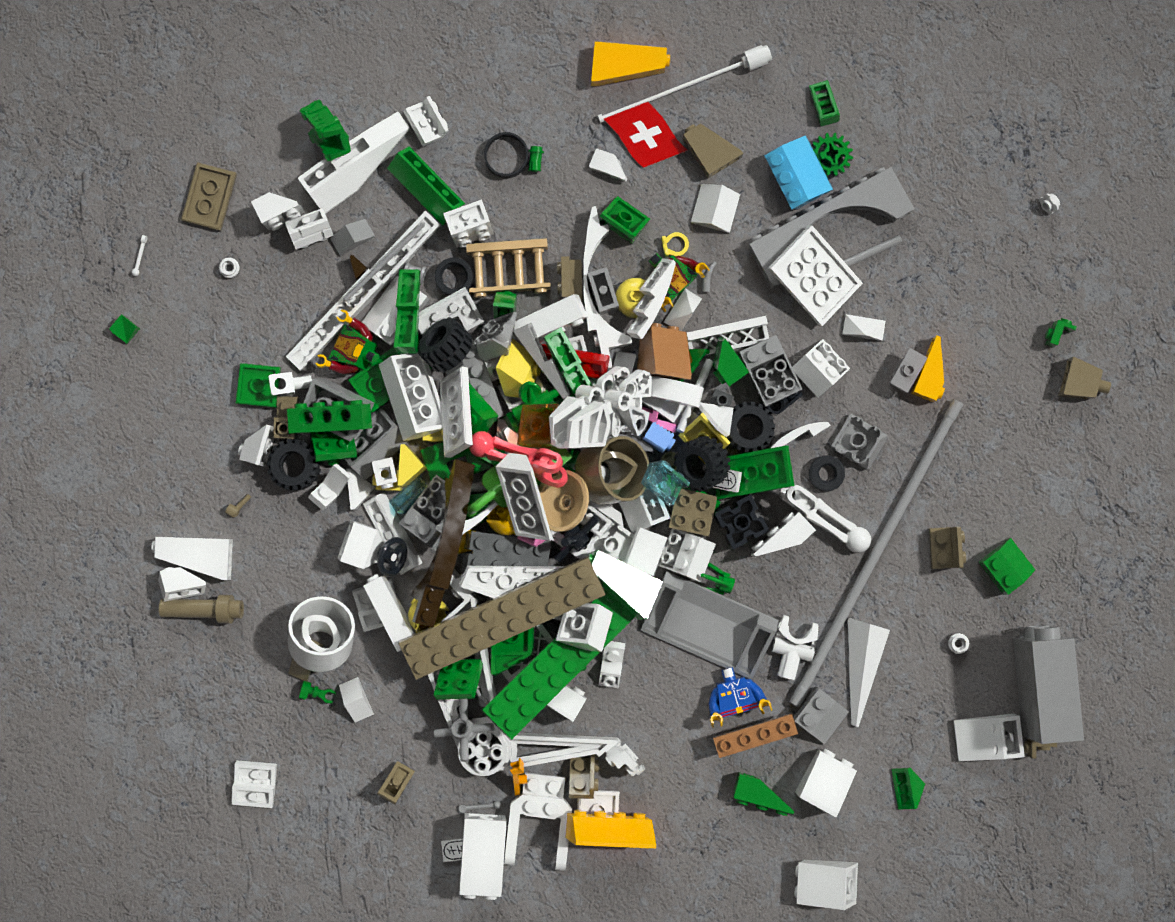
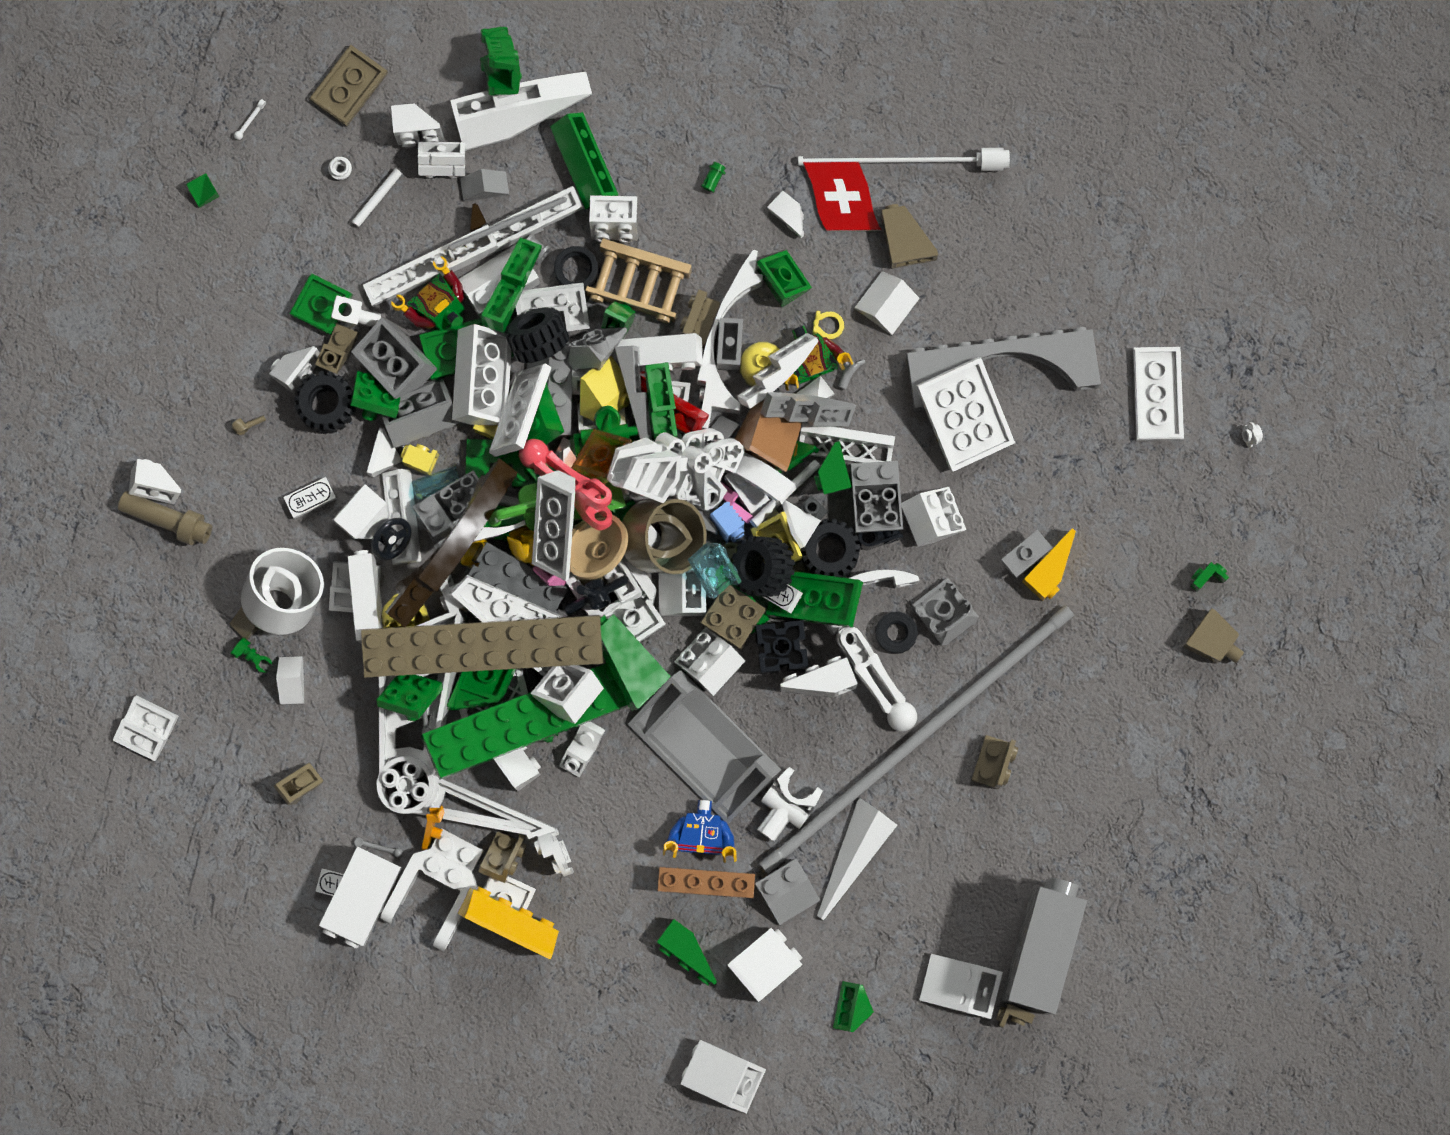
camera: 20 degrees right, 5 degrees down
(198, 554) = (187, 459): white slope -> none
(268, 280) = (377, 197): none -> white bar
(312, 546) = (310, 498): none -> white tile
(330, 487) = (355, 442): white bracket -> none
(359, 417) = (414, 376): green brick -> none
(384, 464) = (421, 437): white brick -> none
(409, 466) = (447, 451): light yellow slope -> none
(426, 121) = (612, 93): white bracket -> none
(456, 730) = (388, 747): light grey bar -> none
(500, 135) = (677, 139): black tyre -> none
(625, 62) = (850, 111): yellow slope -> none
(646, 551) = (667, 638): white slope -> none
(687, 320) = (808, 408): none -> light grey slope
(723, 583) = (737, 707): green plant -> none
(798, 172) = (990, 298): medium azure slope -> none
(828, 115) = (1048, 250): green slope -> none
(839, 153) = (1042, 293): green gear -> none
(863, 327) = (998, 491): white slope -> none
(873, 250) = (1039, 413): light grey bar -> none
(961, 198) = (1158, 393): none -> white tile
(964, 646) = (976, 872): white plate -> none
(1007, 567) = (1054, 808): green slope -> none

